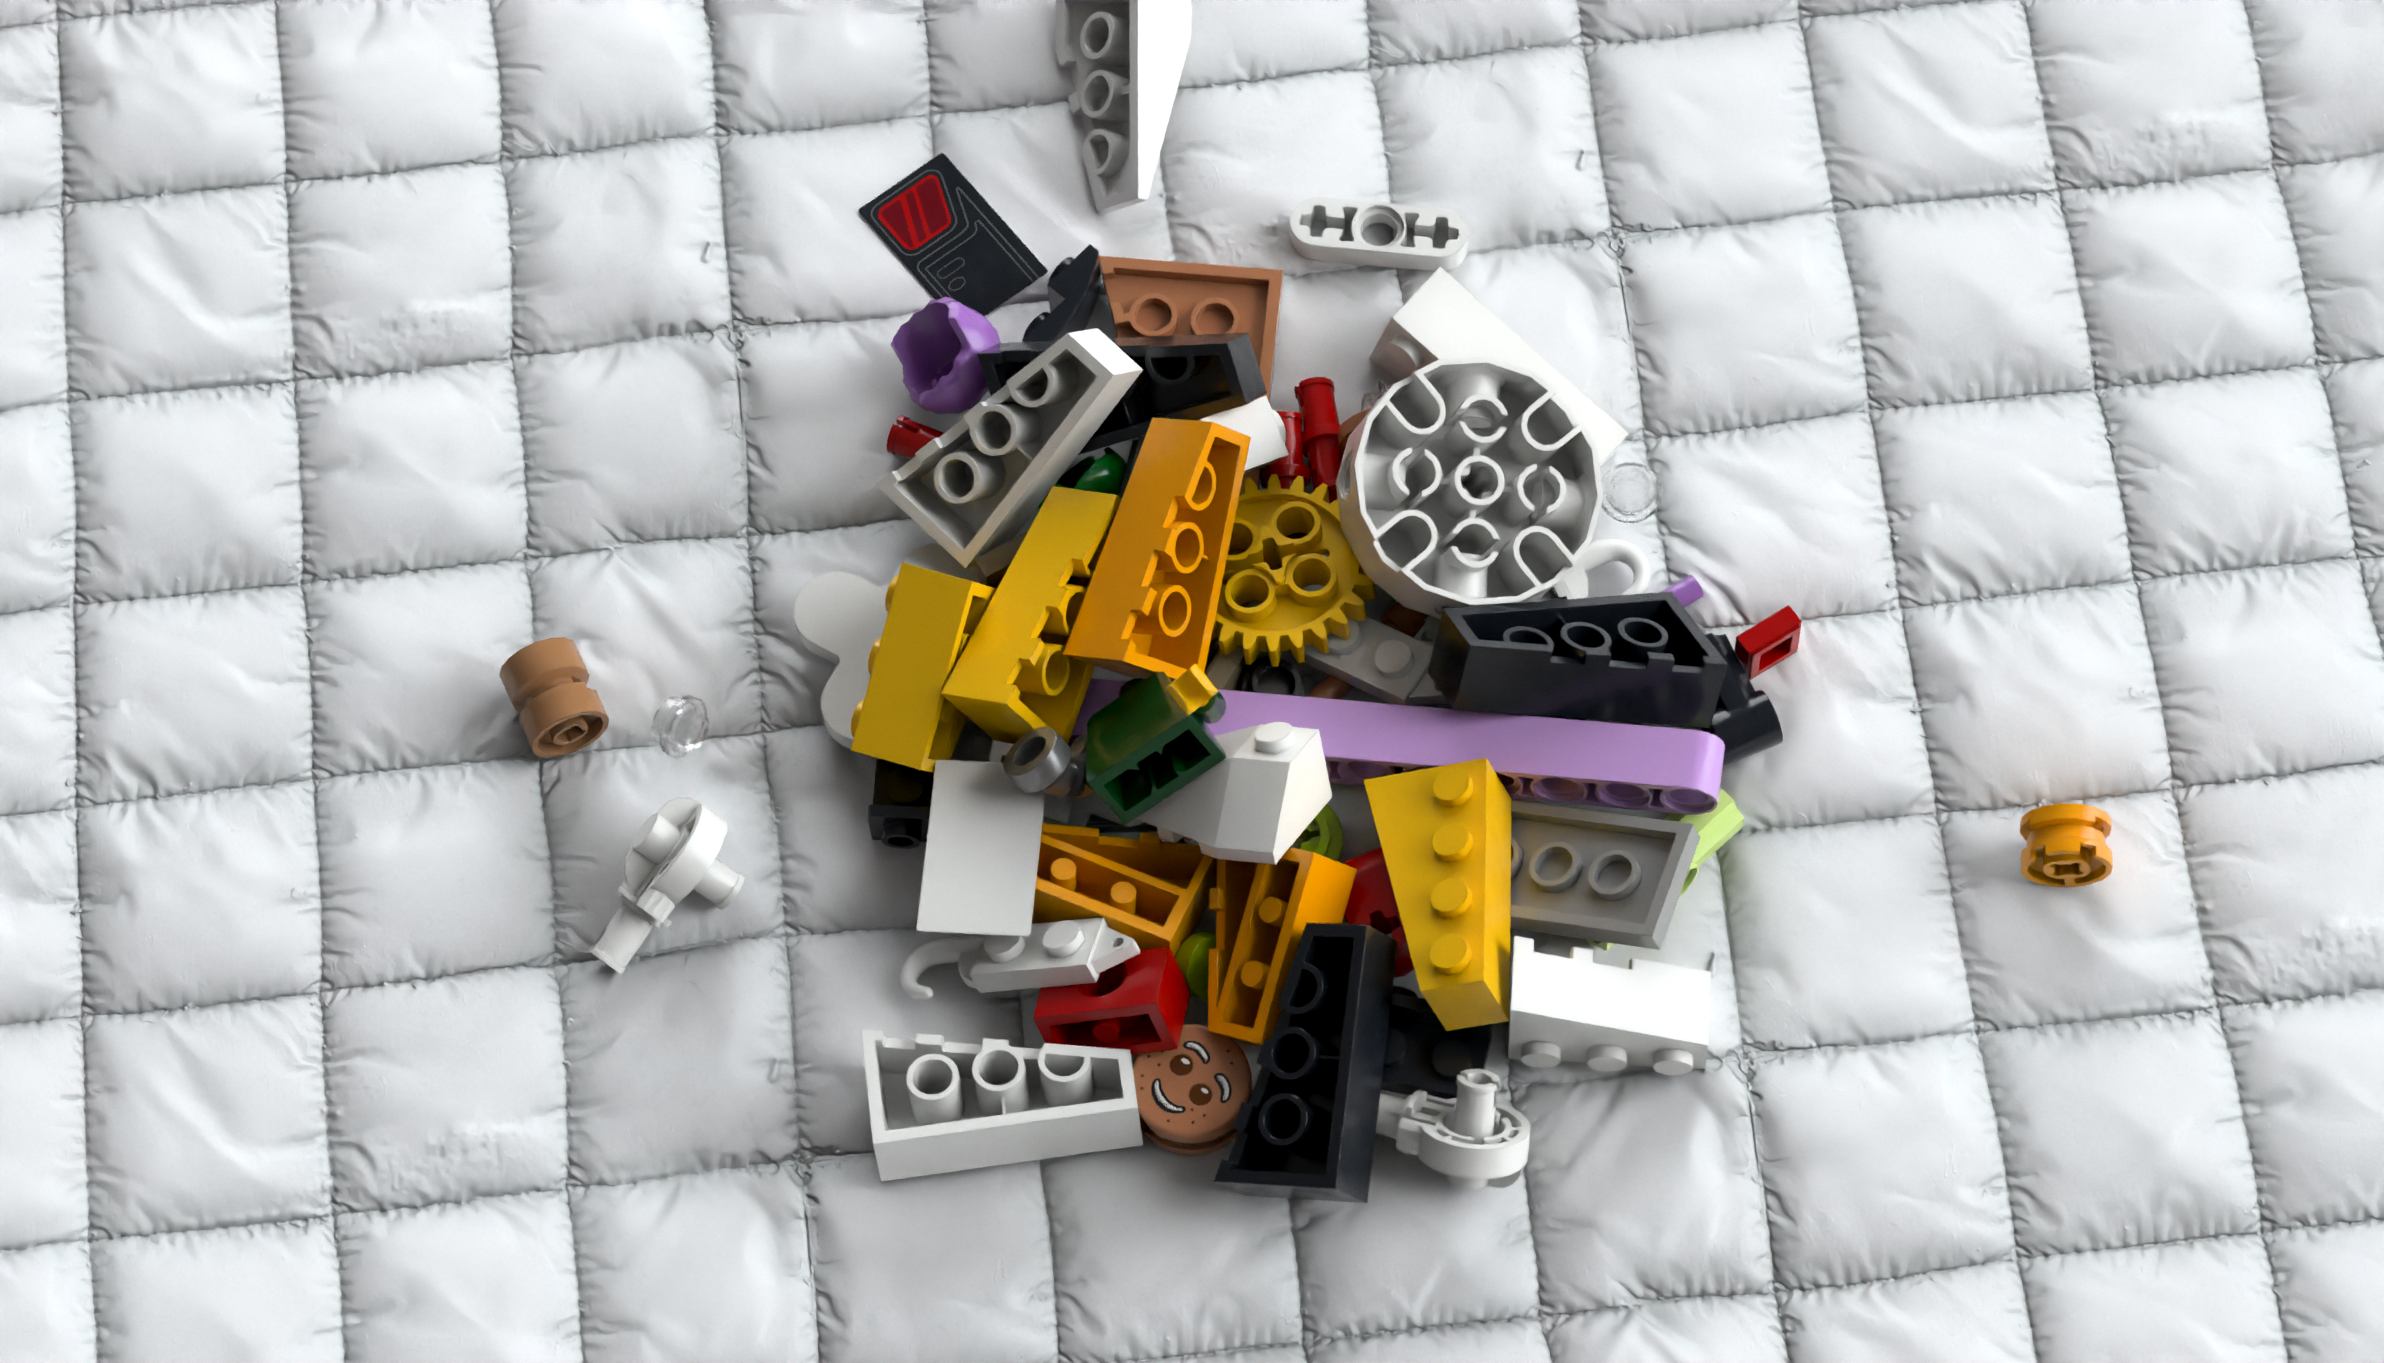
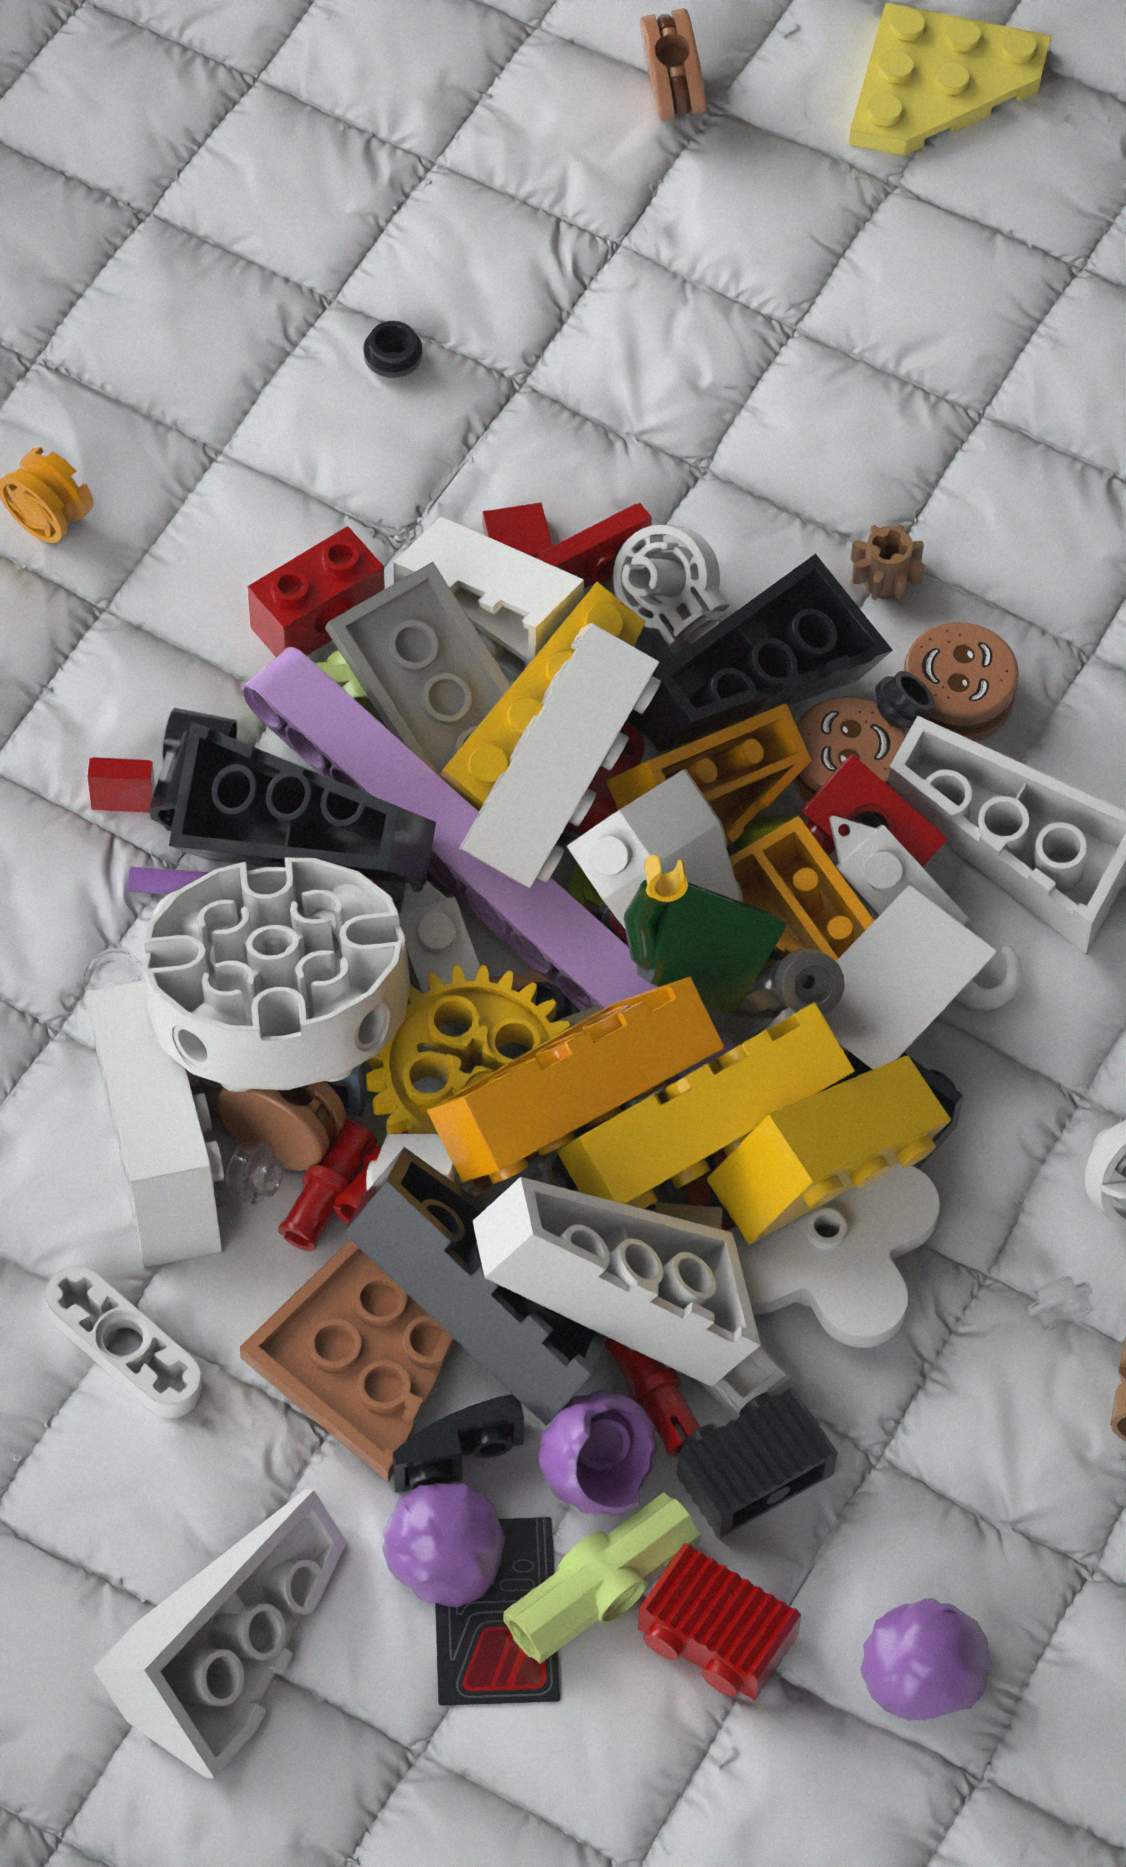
camera: 150 degrees left, 5 degrees down
(600, 386) = (926, 1660): none -> medium lavender hair
(774, 313) = (718, 1623): none -> red brick
(831, 446) = (754, 1460): none -> black brick
(884, 292) = (600, 1578): none -> yellowish green piece
(885, 524) = (750, 1378): none -> white tile
(1018, 236) = (444, 1543): none -> medium lavender hair
(1147, 1230) = (968, 675): none -> nougat head
(1168, 1137) = (903, 699): none -> black plate
(1291, 1285) = (887, 562): none -> medium nougat gear
(1386, 809) = (561, 755): none -> white wedge
(1555, 1128) = (595, 549): none -> red plate
(1644, 1116) = (519, 527): none -> red tile
(1756, 915) = (312, 589): none -> red brick
(1916, 1209) = (392, 337): none -> black plate

